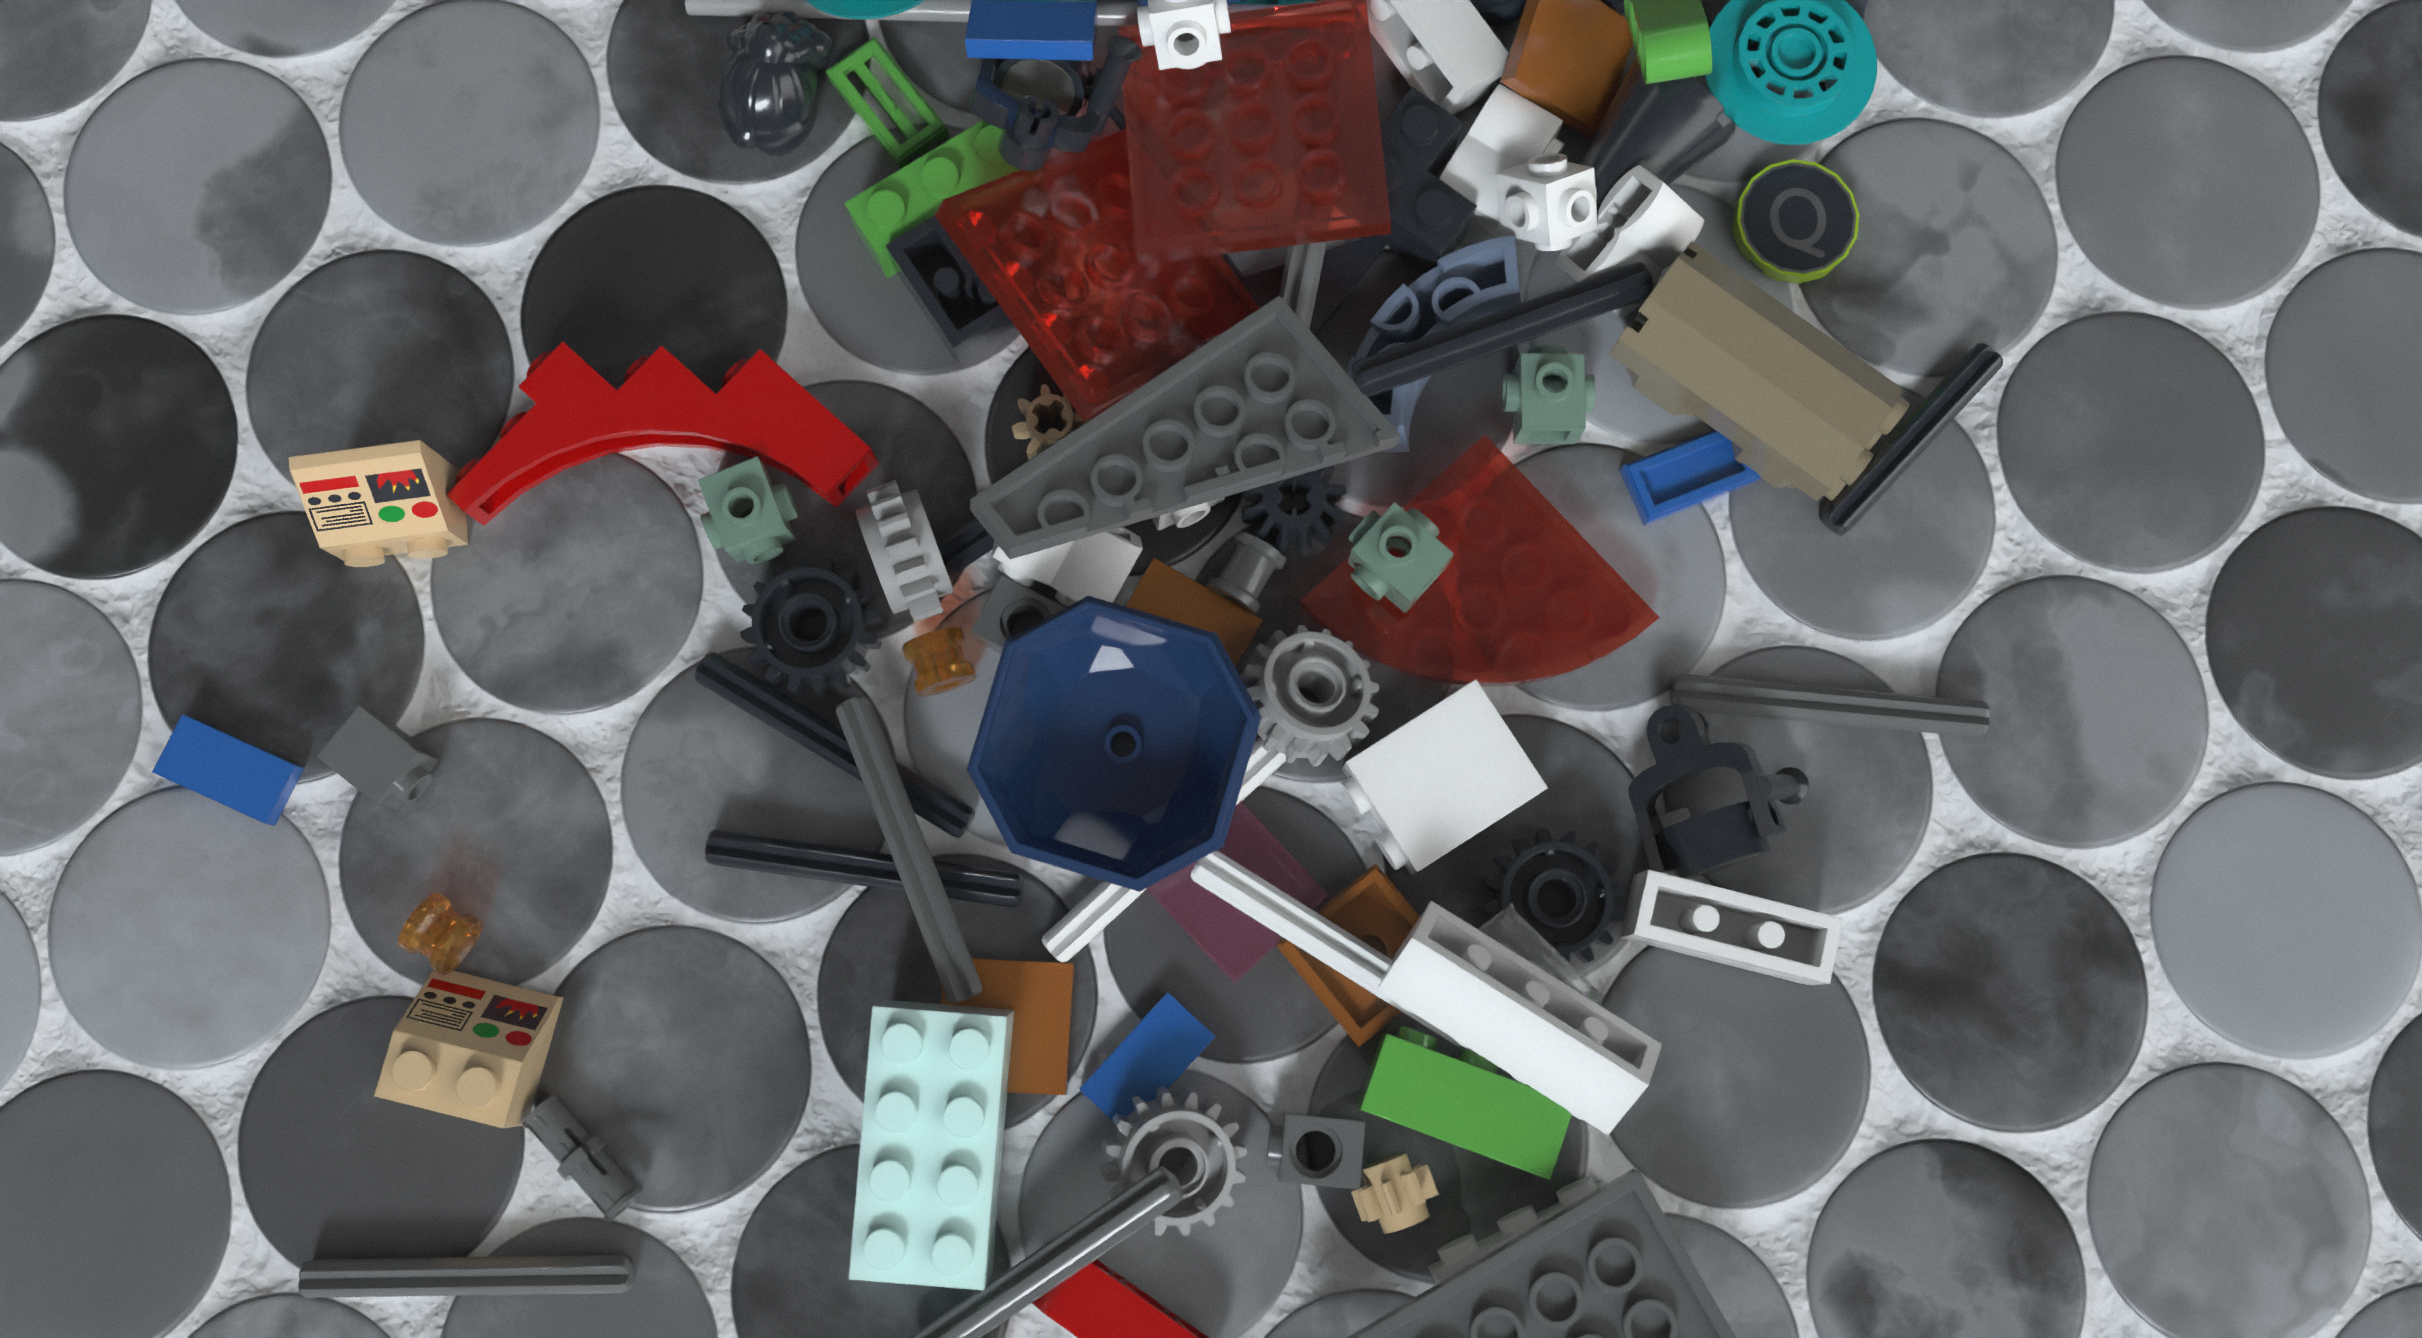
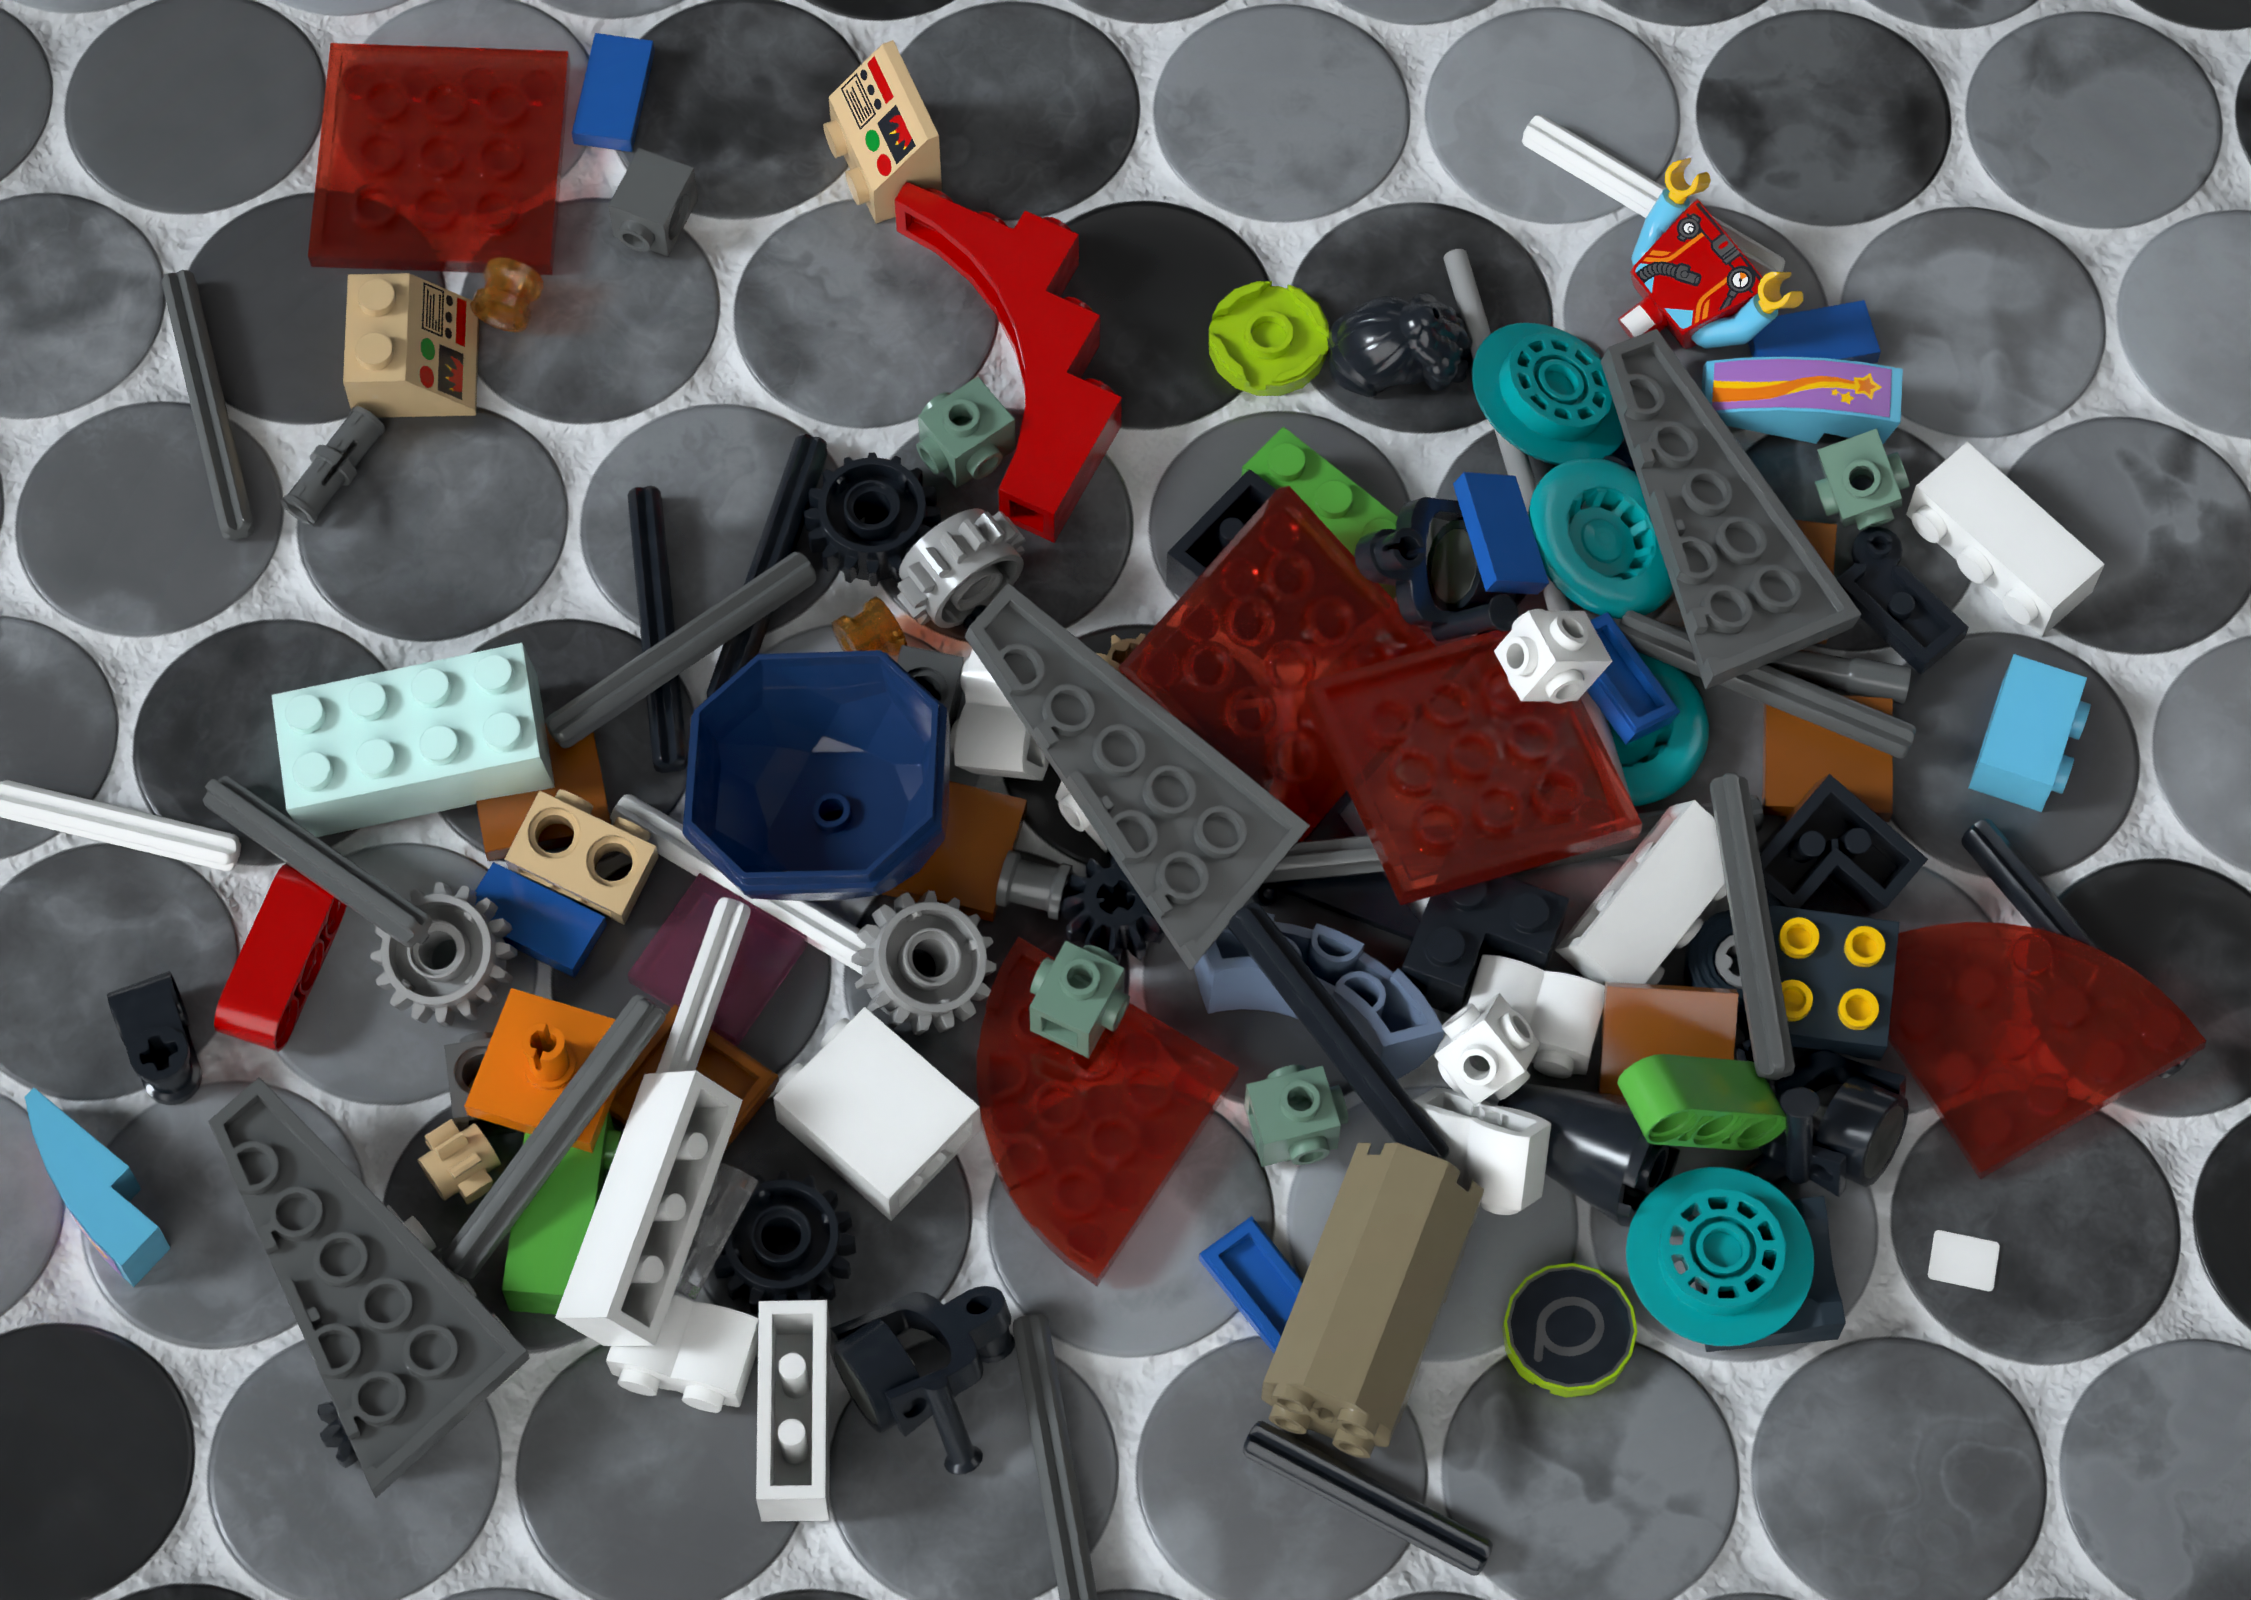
camera: 75 degrees right, 15 degrees down
(248, 969) = (439, 158): none -> clear red plate
(721, 201) = (1268, 338): none -> lime tile
(916, 141) = (1386, 489): bright green tile -> none
(1117, 1010) = (574, 869): none -> tan brick
(1340, 1081) = (532, 1062): none -> orange tile
(1424, 1092) = (553, 1137): none -> dark grey axle
(1650, 996) = (699, 1352): none -> white brick

